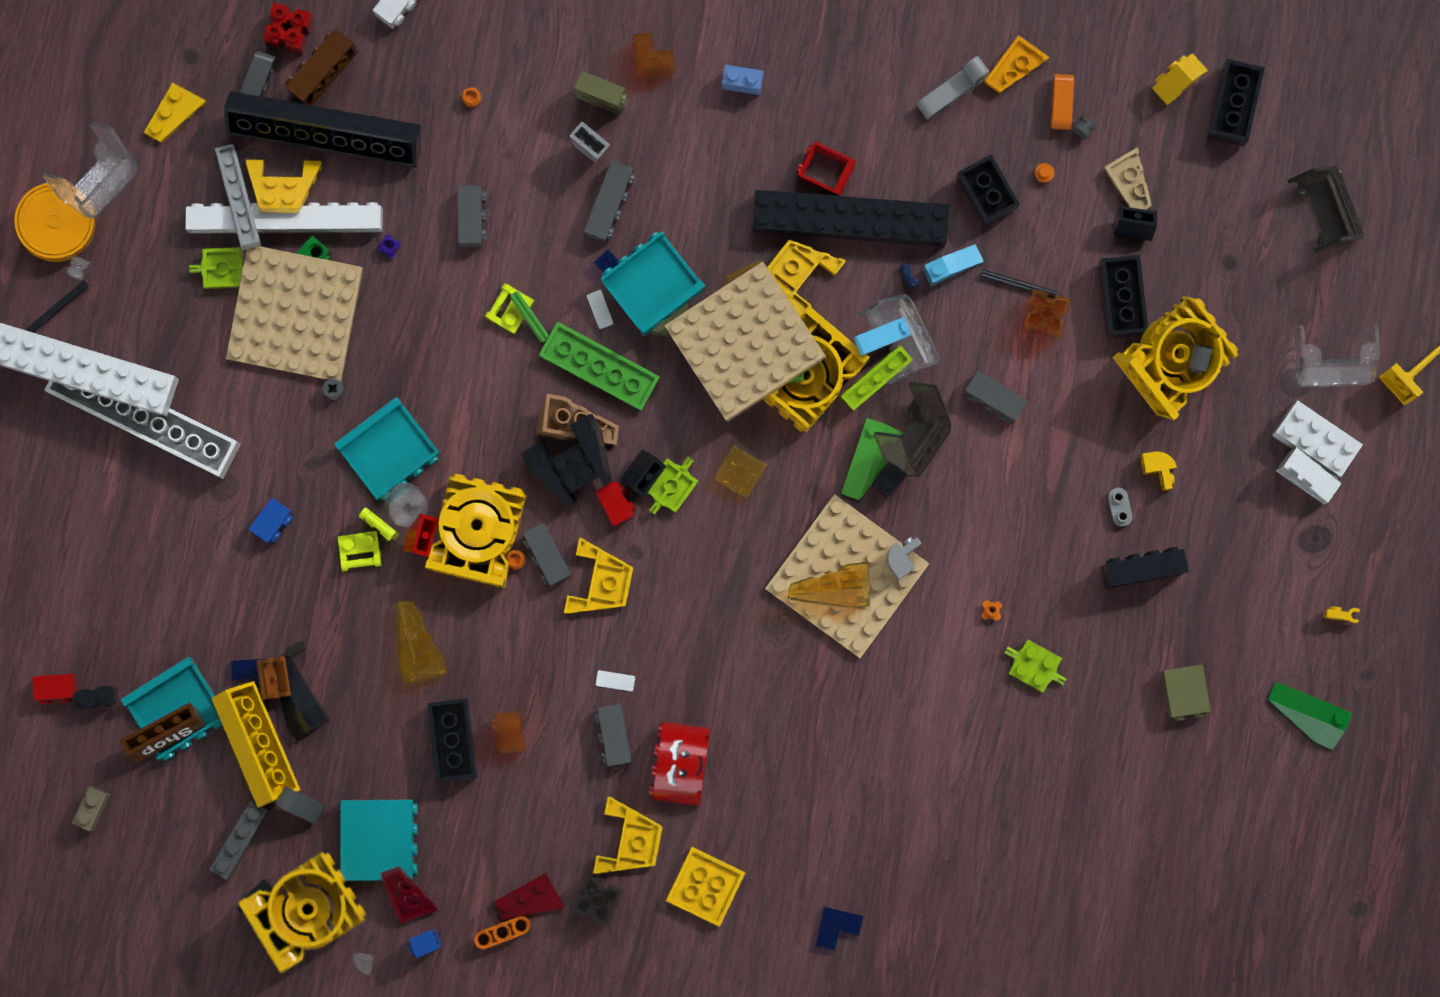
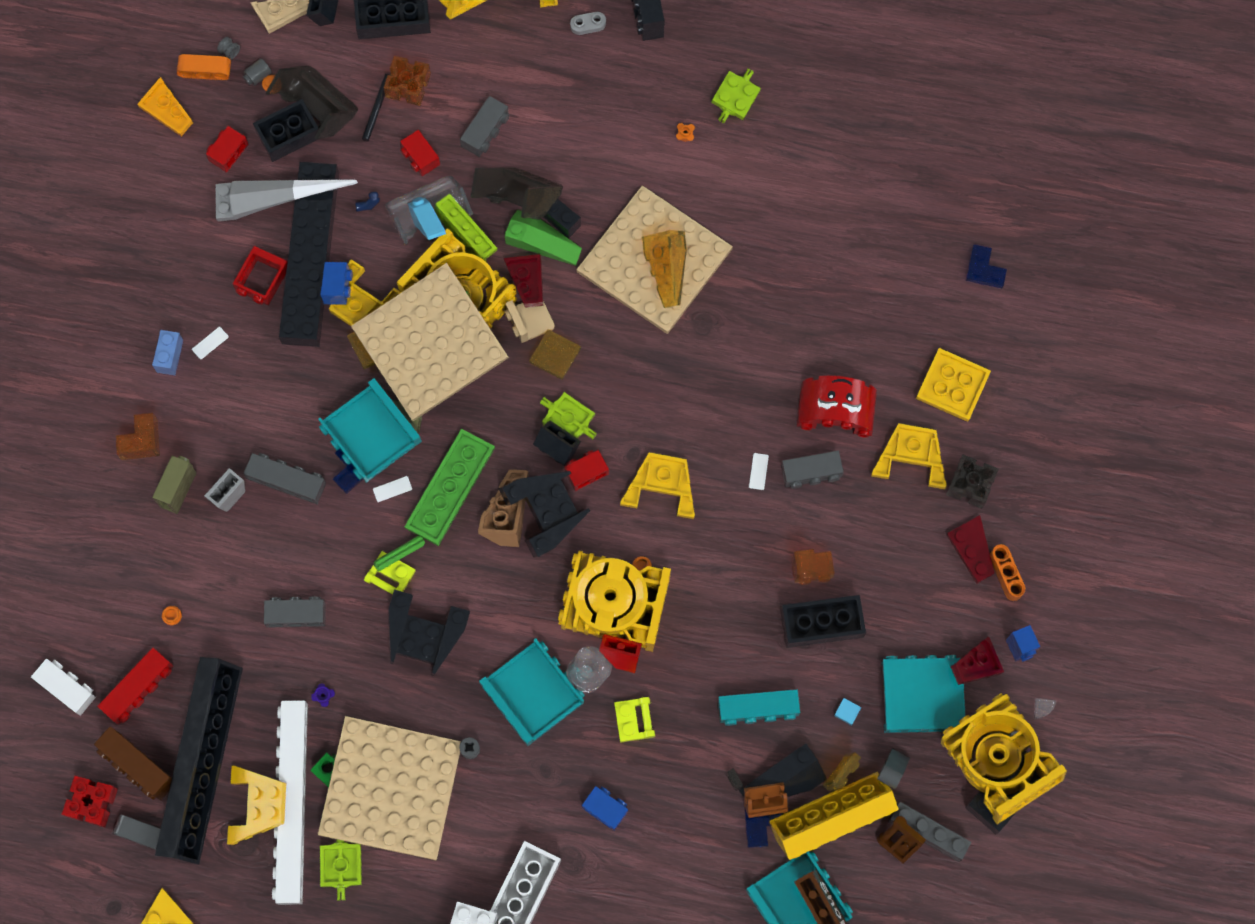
camera: 90 degrees left, 10 degrees down
(227, 815) = (906, 844): none -> reddish brown plate
(237, 197) = (266, 848): light grey tile -> none
(293, 749) = (838, 777): none -> clear yellow plate
(363, 763) = (847, 711): none -> medium azure tile
(369, 674) = (759, 706): none -> teal brick
(374, 521) = (614, 691): neon yellow plate -> none
(400, 66) = (135, 686): none -> red brick
(416, 651) = (738, 659): clear yellow wedge -> none
(442, 341) = (422, 638): none -> black wedge
(546, 555) = (637, 534): dark grey brick -> none
(756, 122) = (210, 343): none -> white sticker
(779, 445) = (528, 321): none -> tan bracket
(814, 245) = (335, 283): none -> blue brick
(825, 442) = (527, 277): none -> dark red wing
(897, 559) = (640, 208): light grey brick -> none
(912, 151) = (248, 197): none -> light grey plate
(952, 264) = (358, 165): medium azure slope -> none
(956, 87) = (185, 159): light grey beam -> none
(964, 329) = (420, 153): none -> red brick
(968, 129) = (226, 148): none -> red brick
(1029, 223) = (319, 95): none -> clear smoke windscreen
(1056, 156) = (256, 72): none -> dark grey brick

